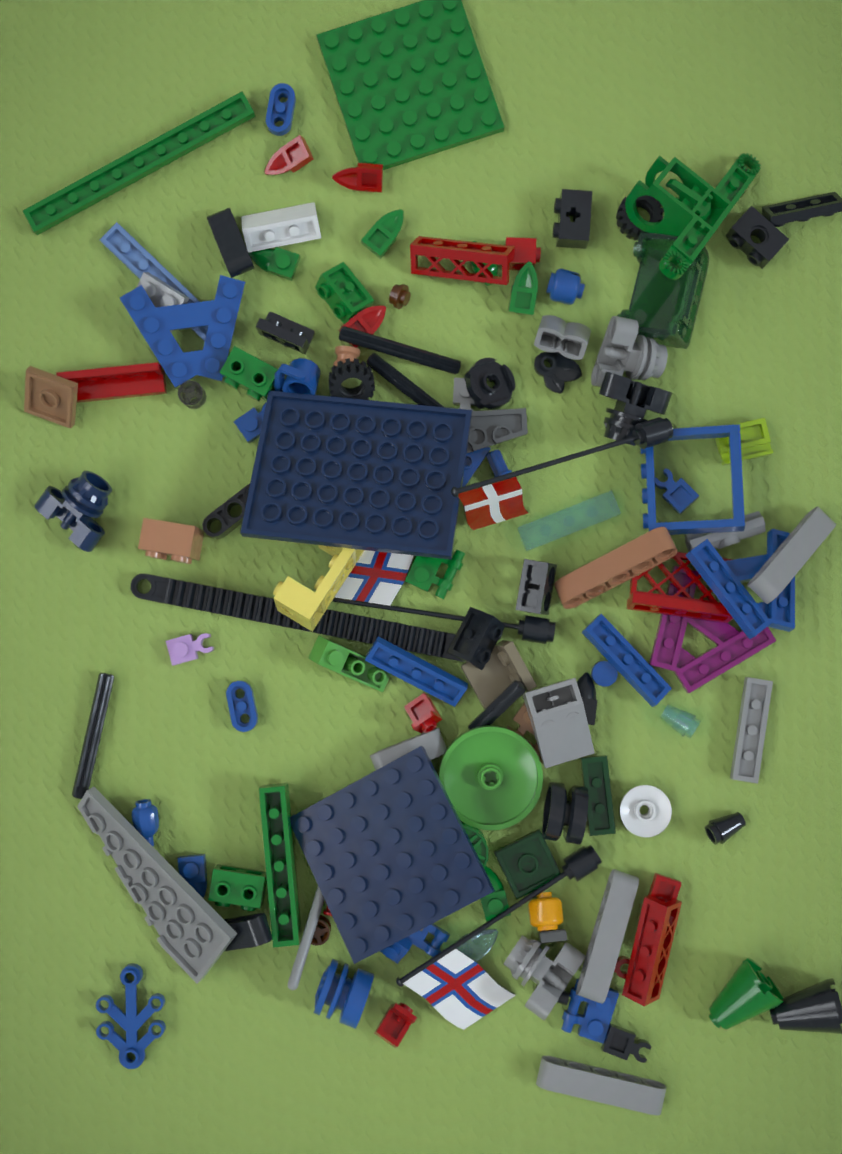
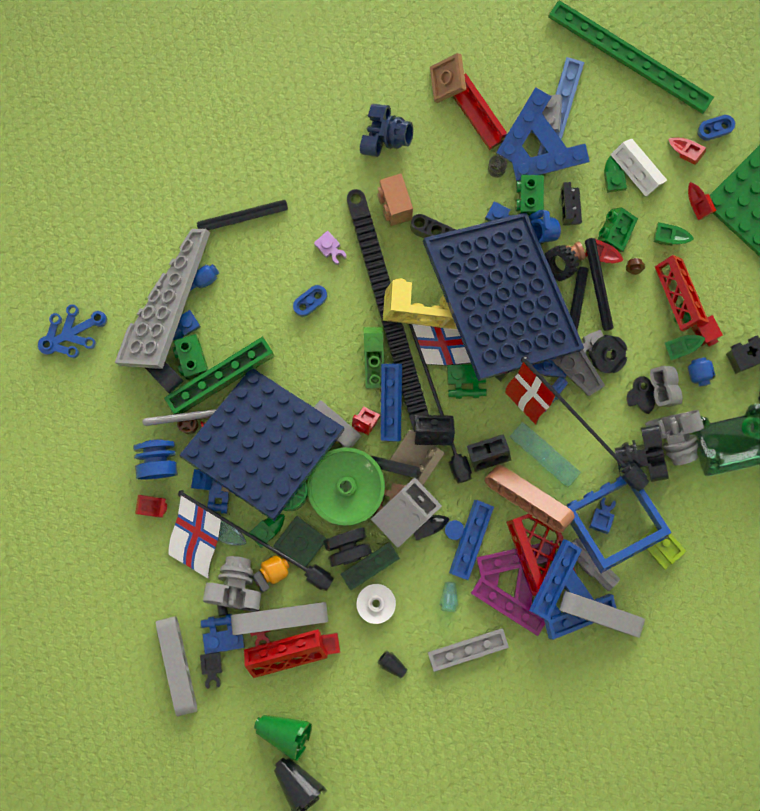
camera: 60 degrees right, 5 degrees down
(230, 242) = (610, 139): black beam -> none

